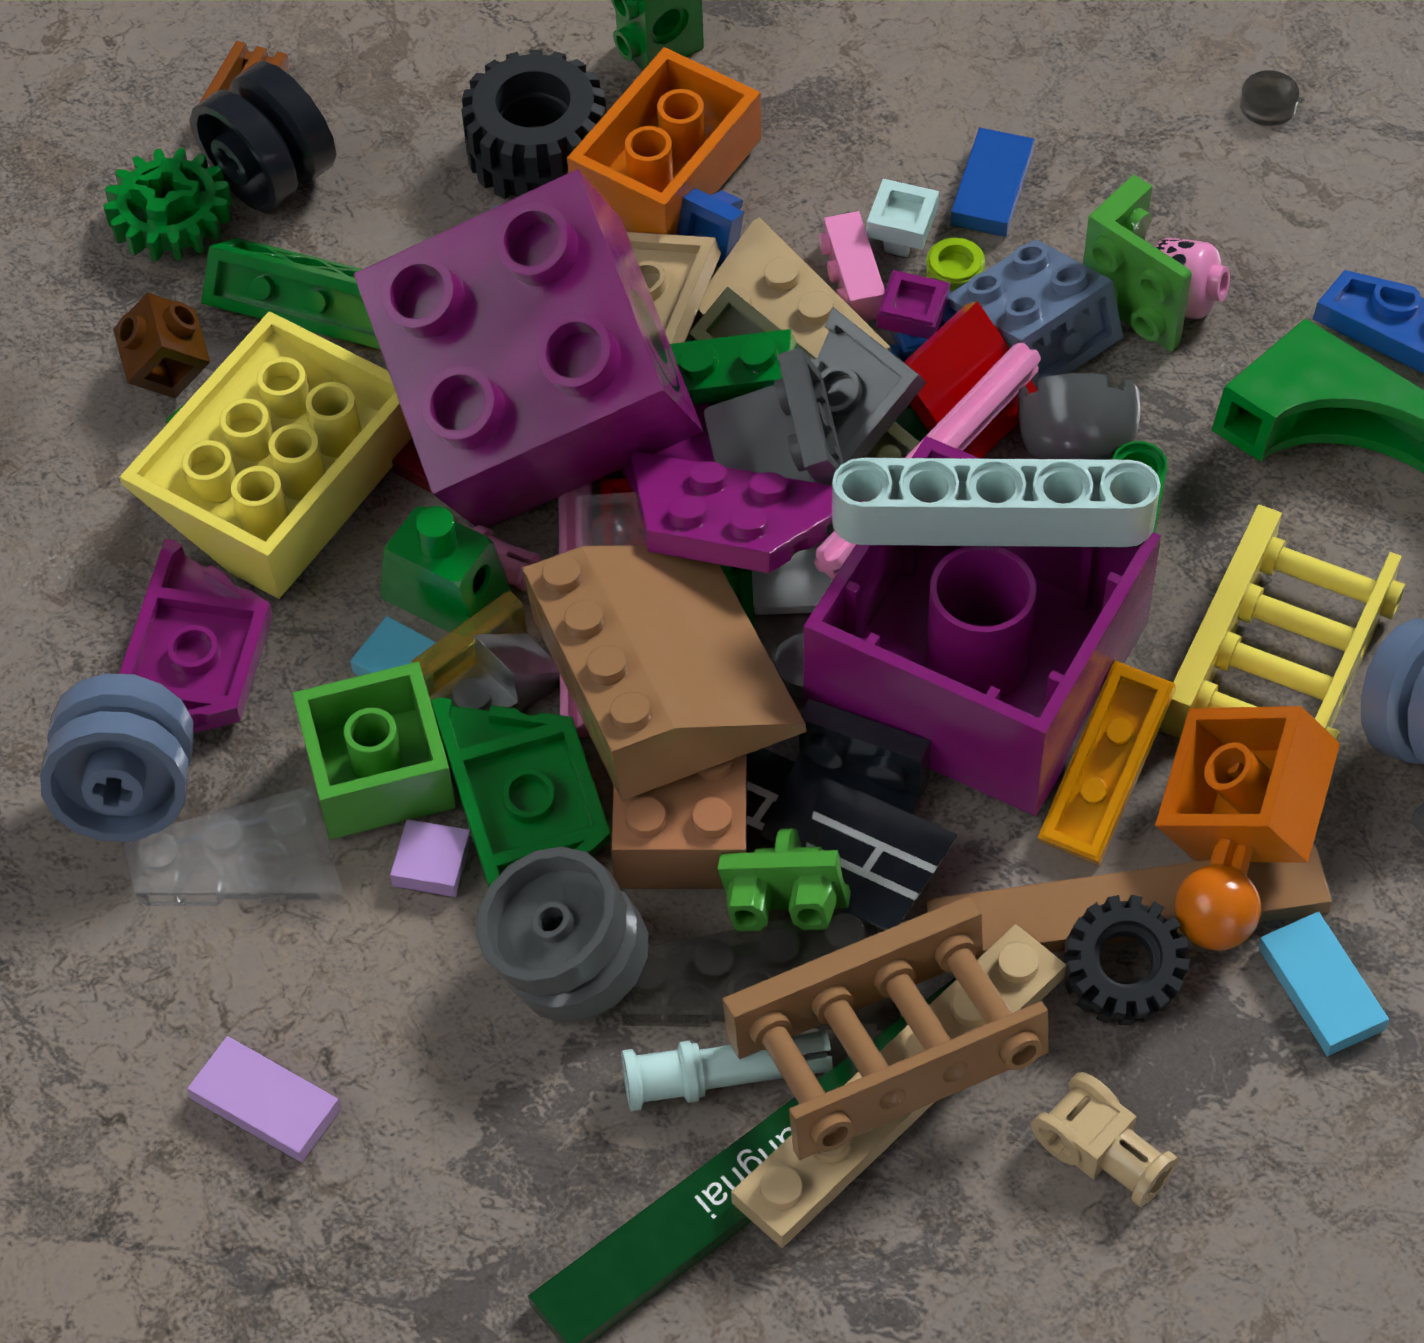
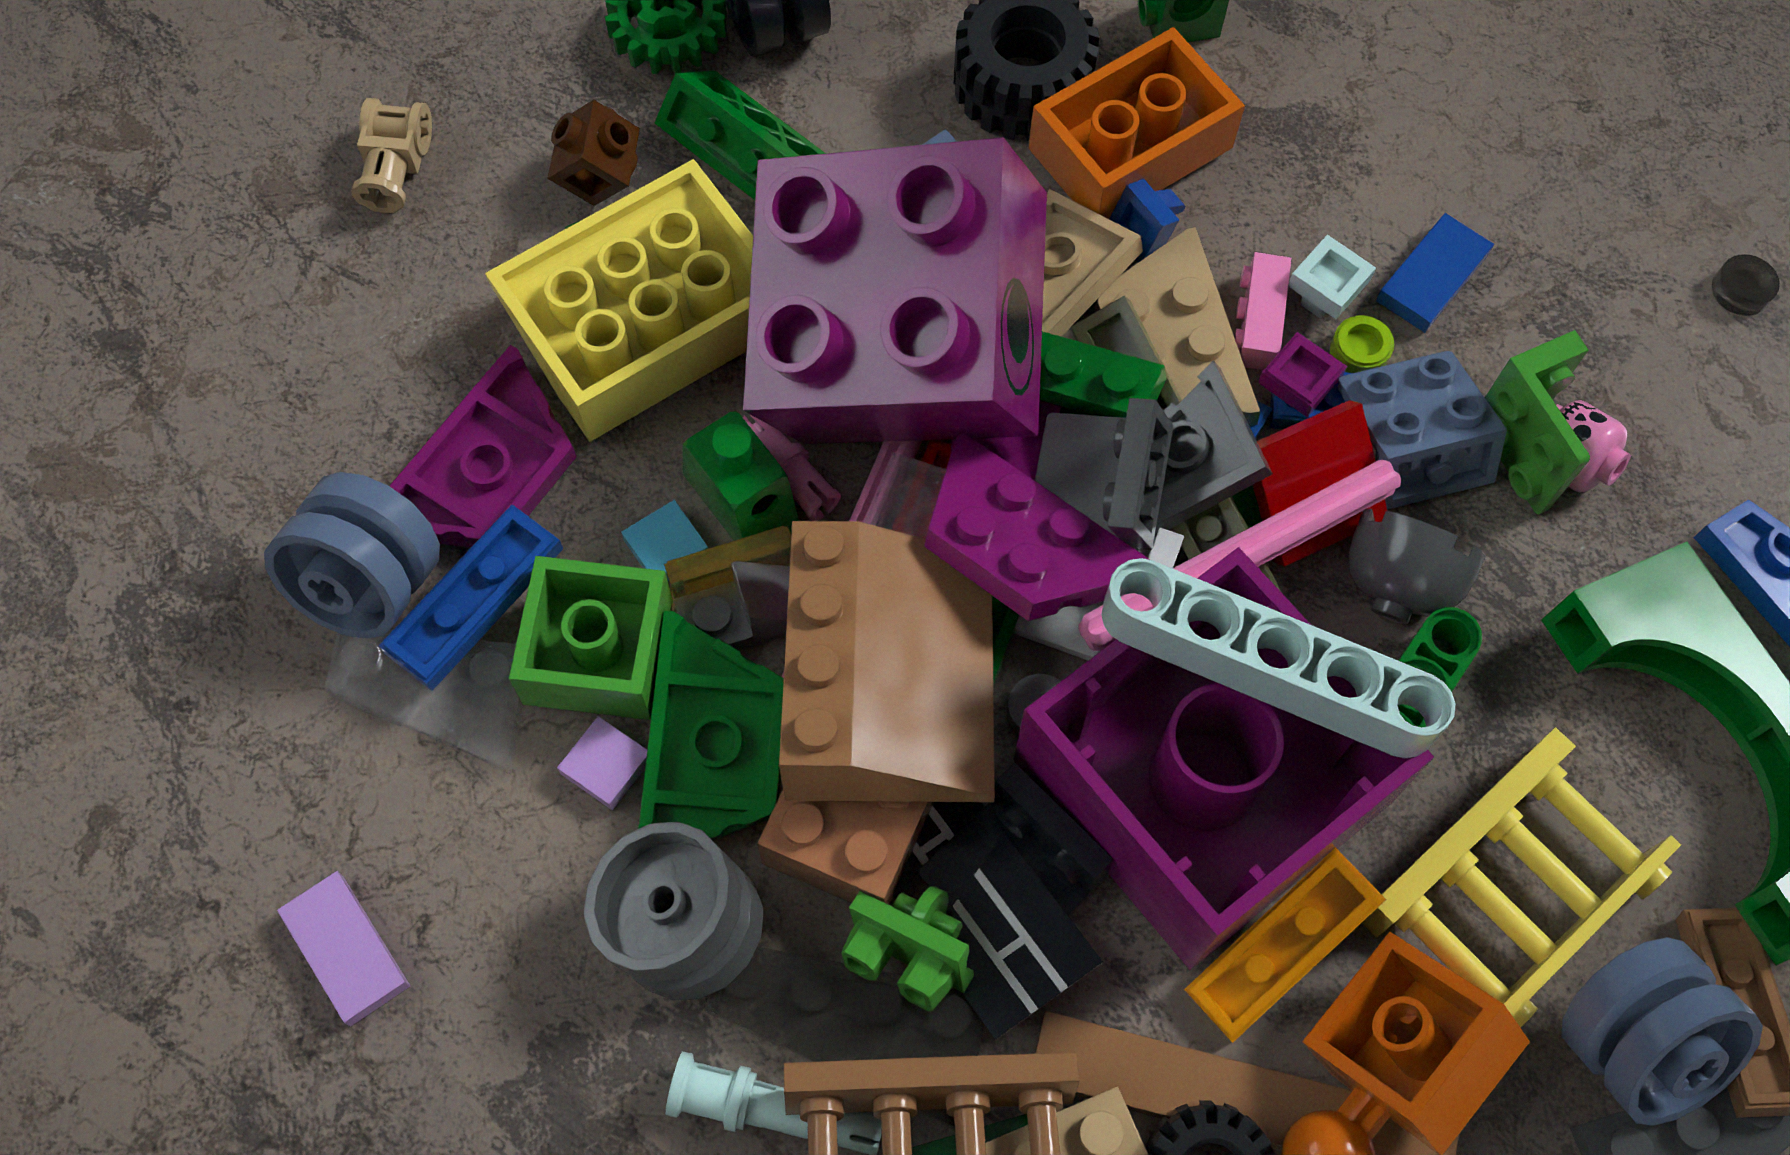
camera: 20 degrees right, 10 degrees up
(240, 760) = (469, 598): none -> blue tile

